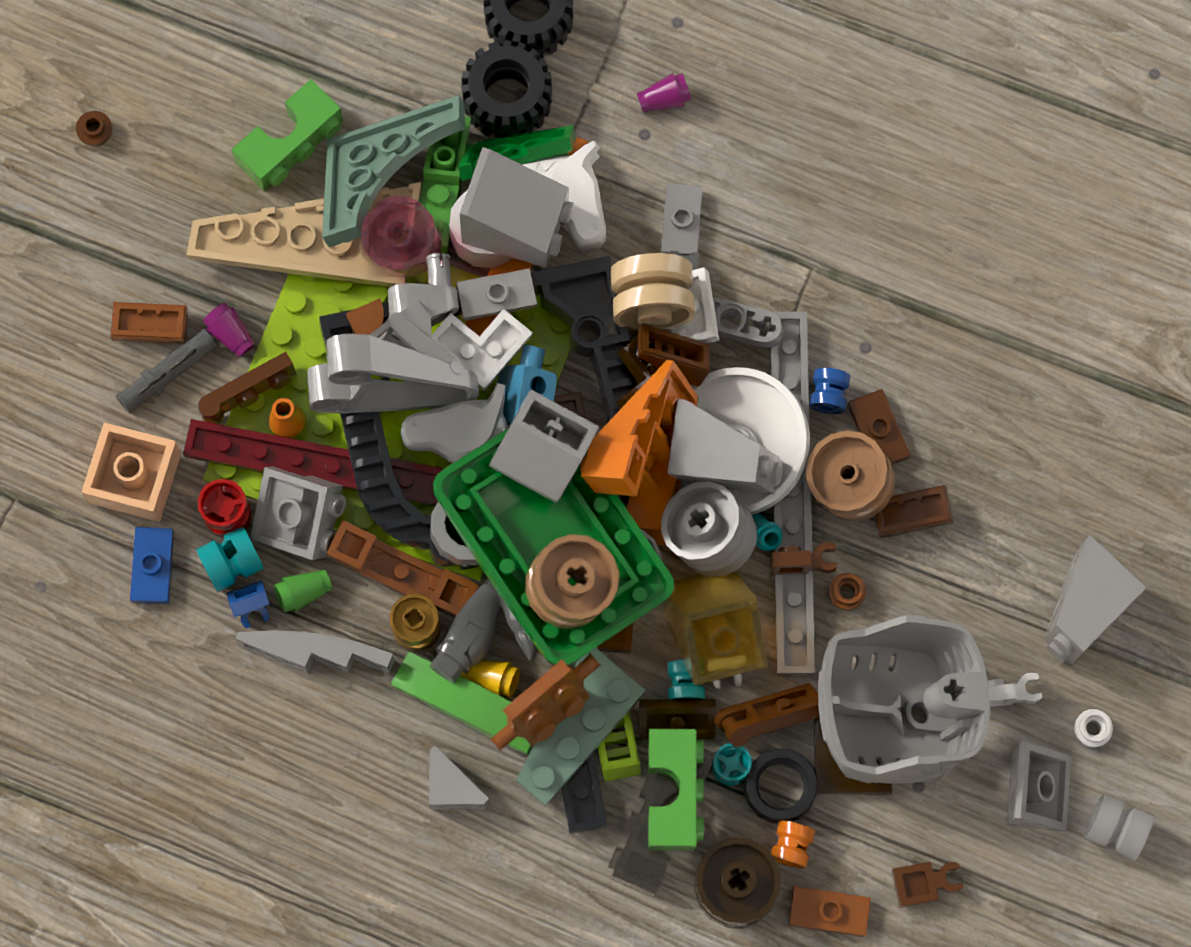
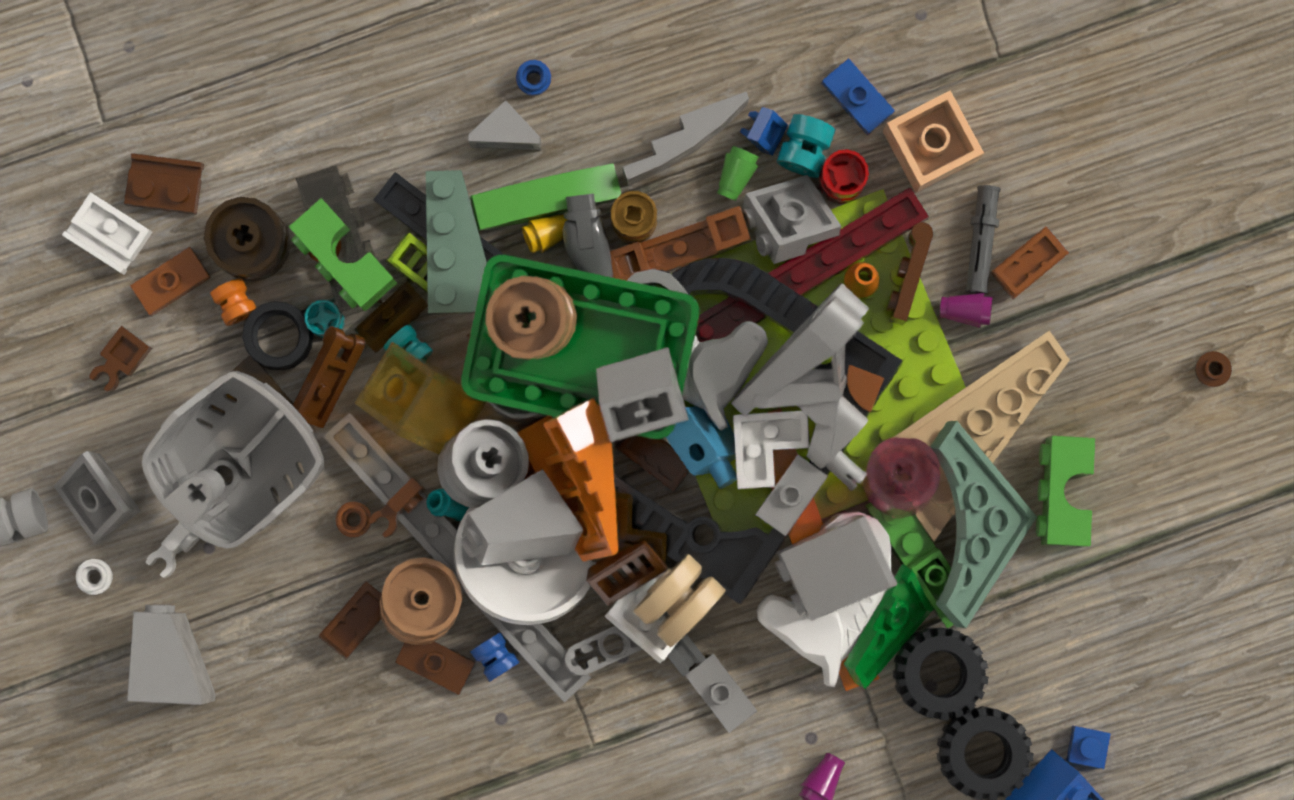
camera: 140 degrees right, 10 degrees up
(380, 803) = (528, 68): none -> blue plate
(546, 703) = (481, 224): dark orange plate -> none

